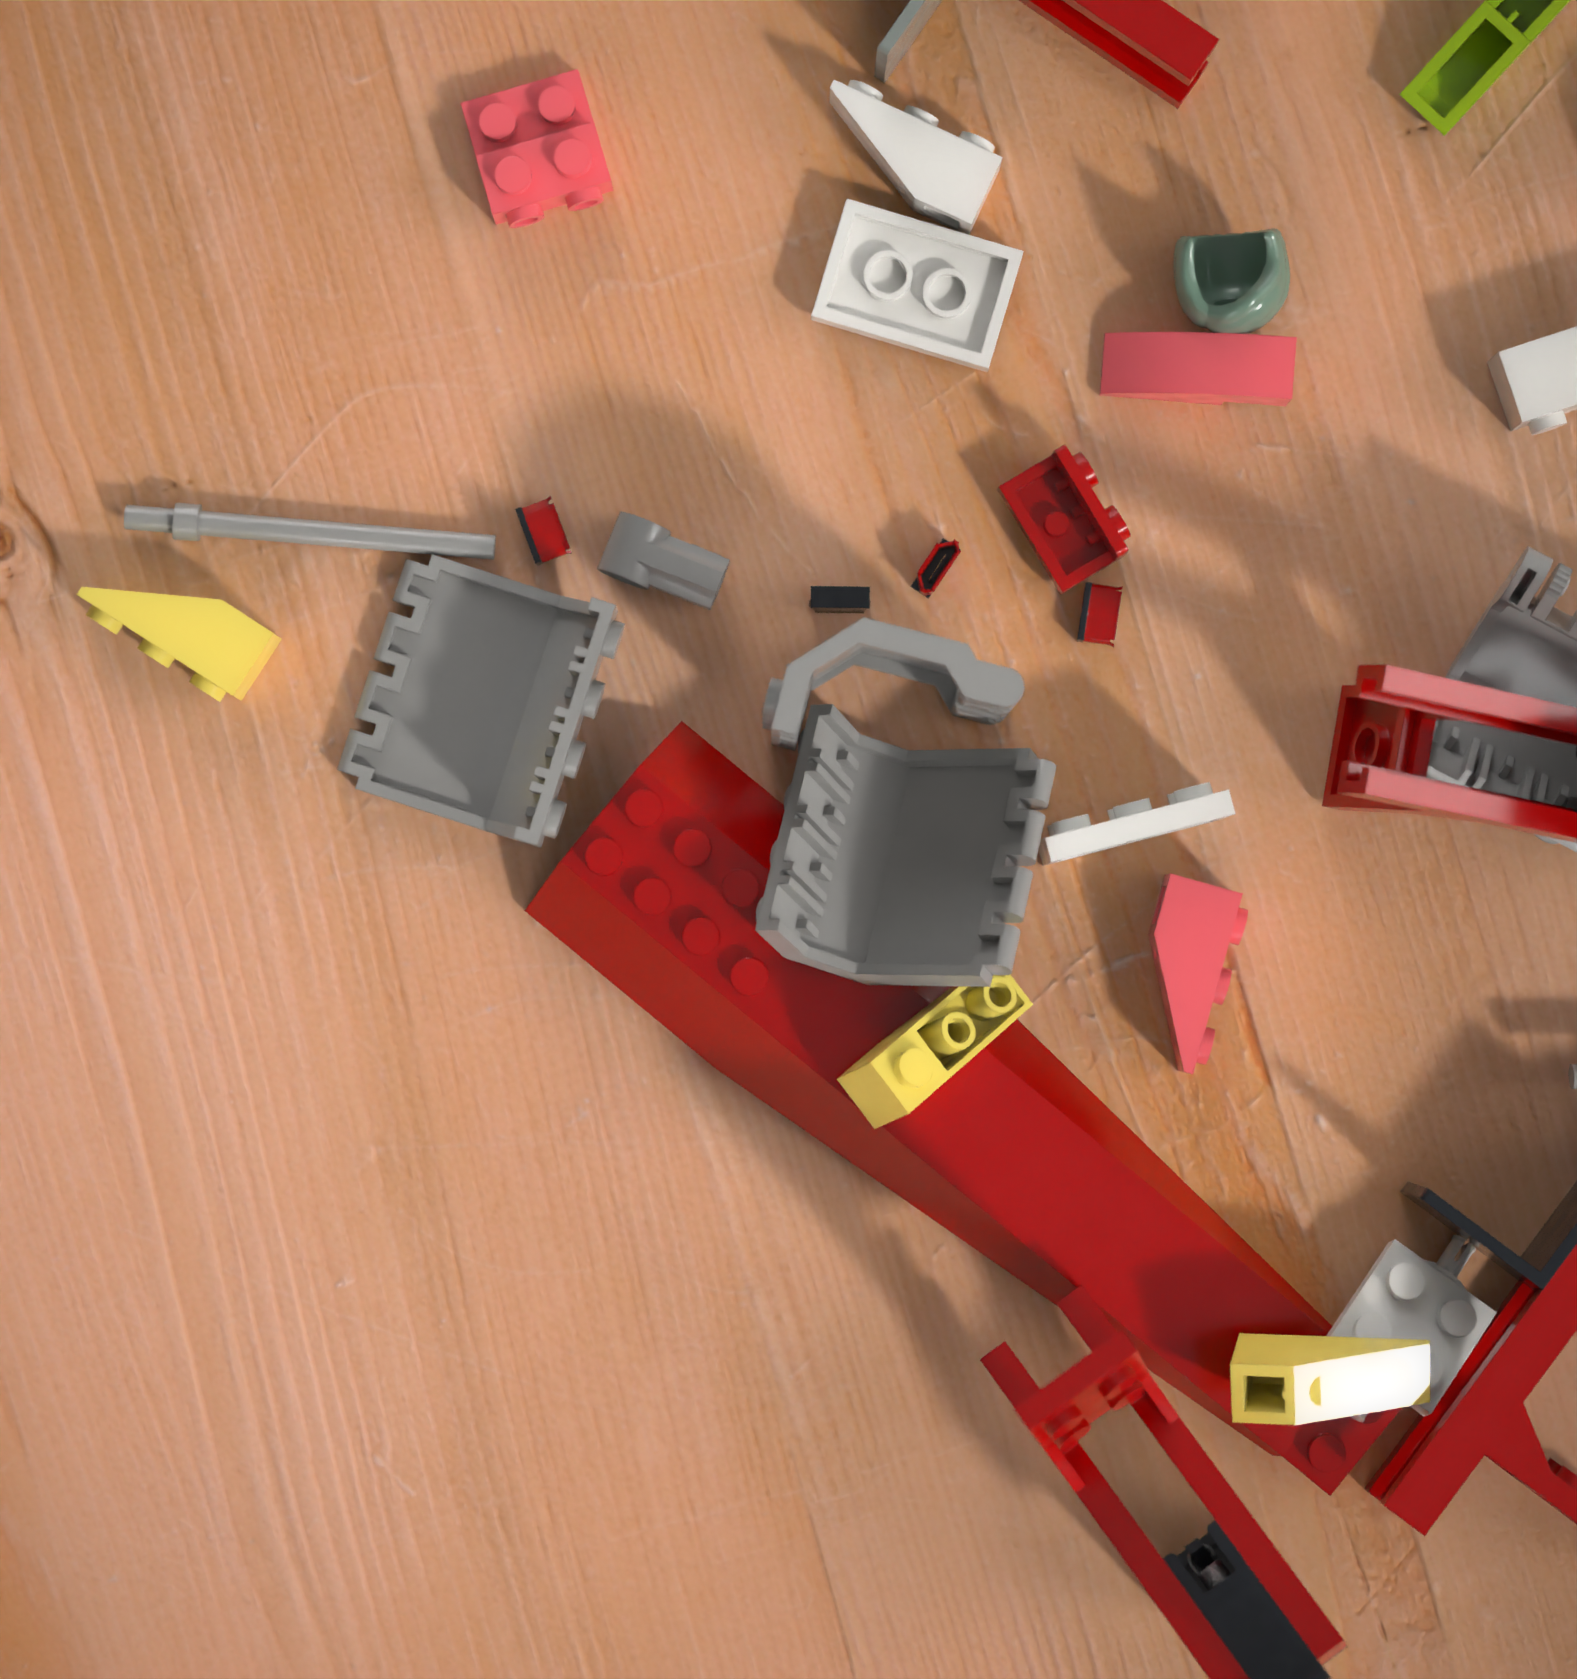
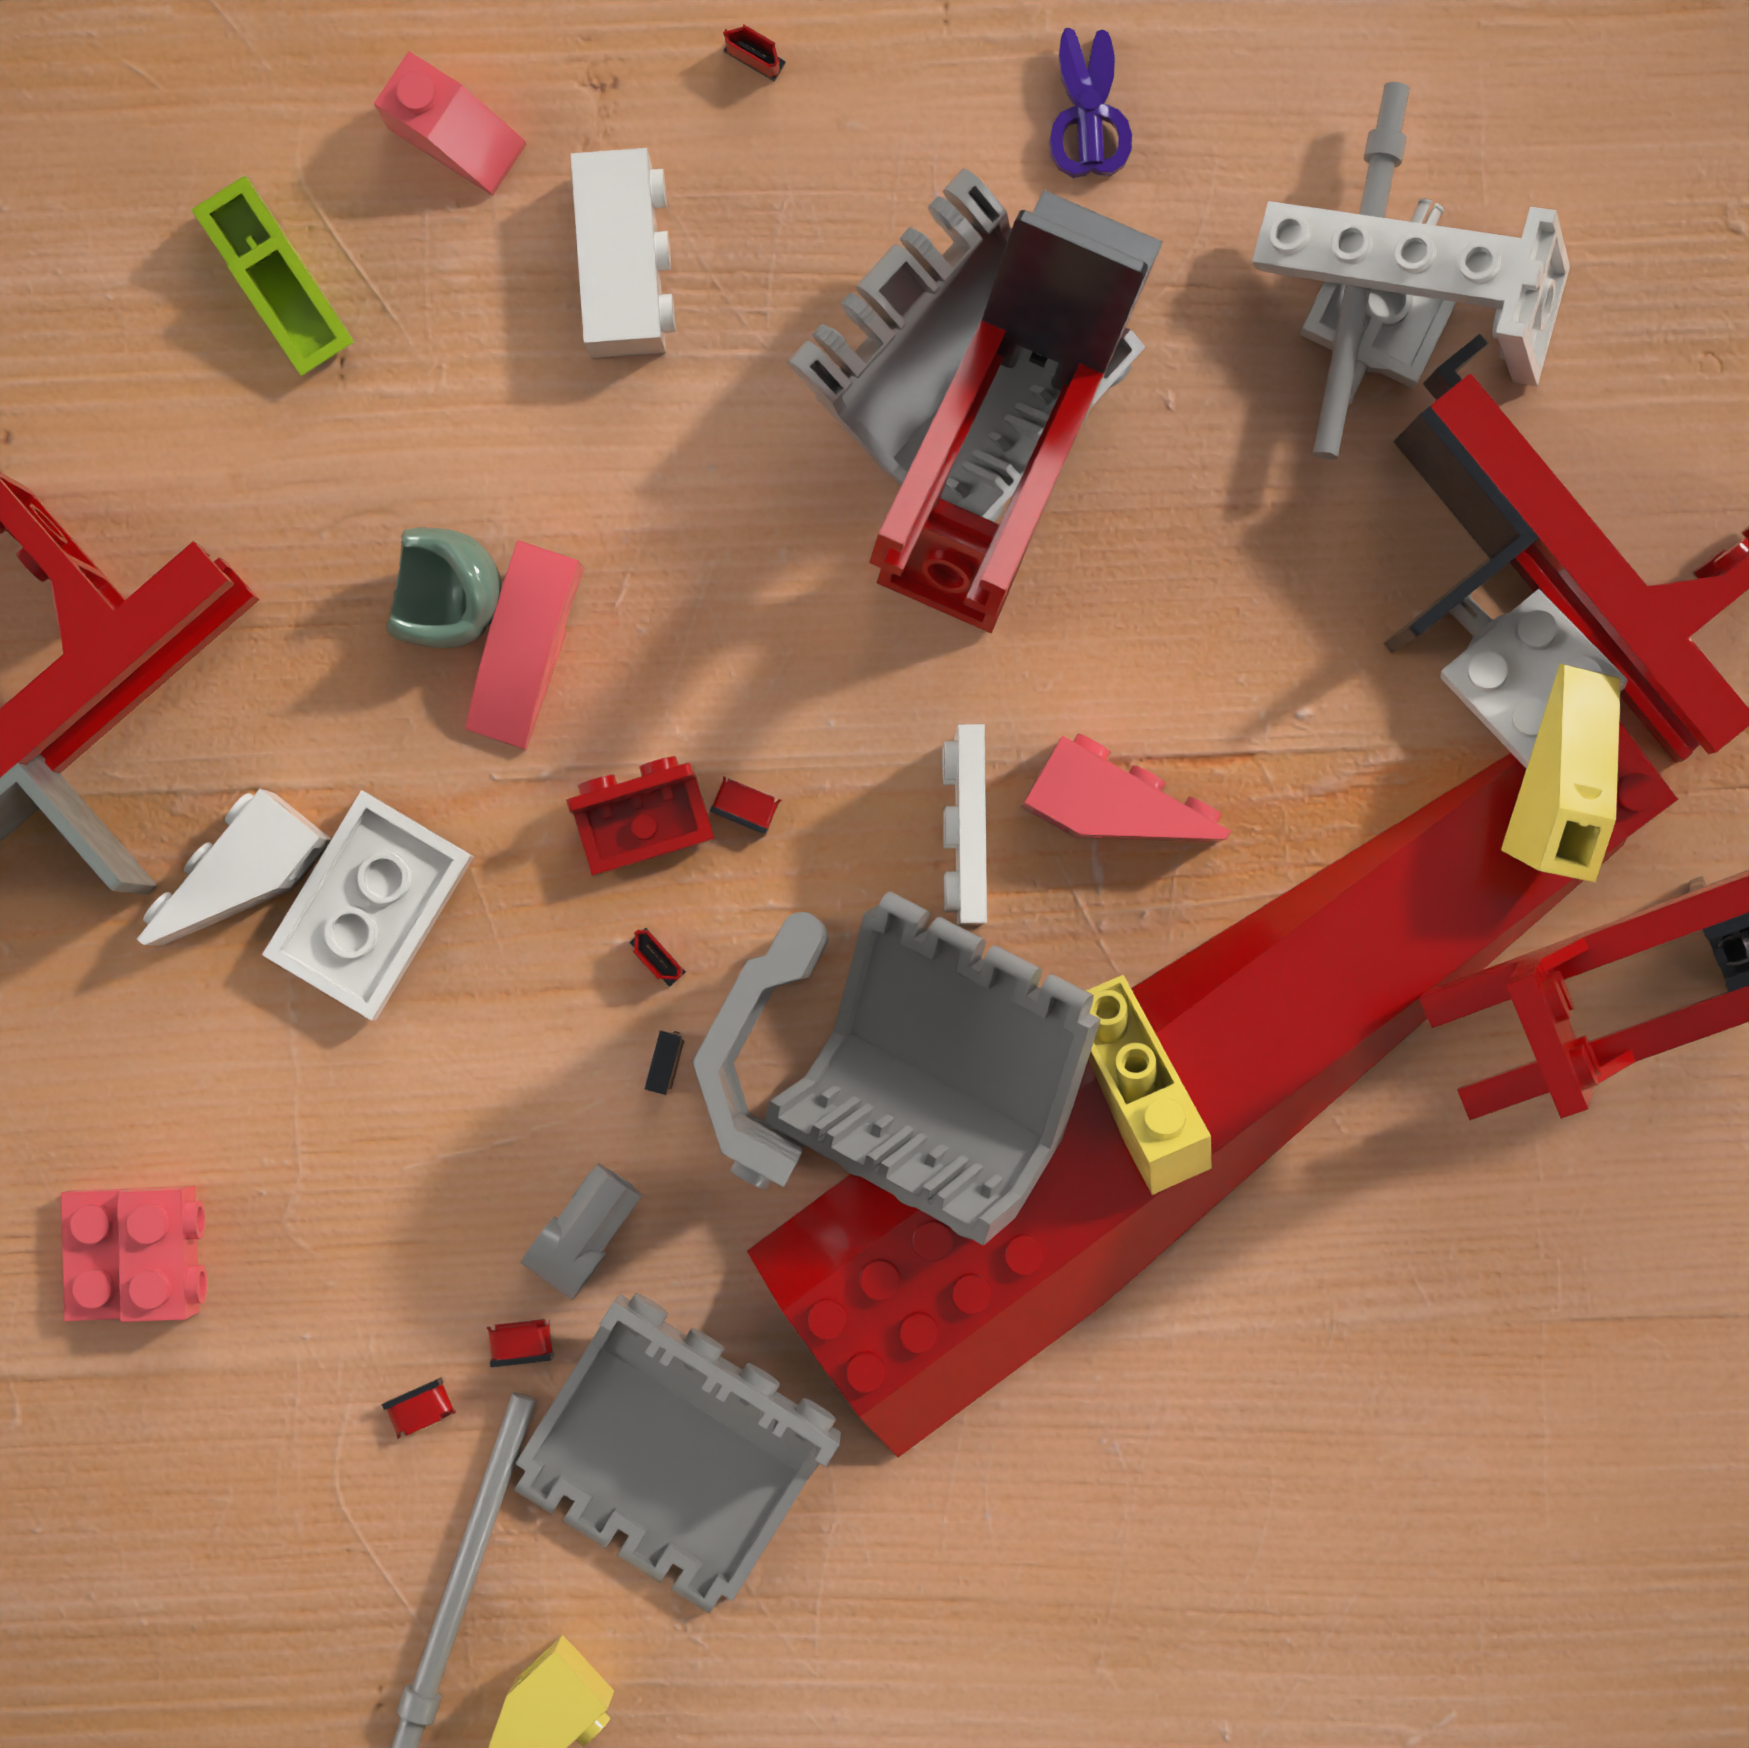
camera: 70 degrees left, 0 degrees up
(460, 452) = (419, 1407): none -> red piece

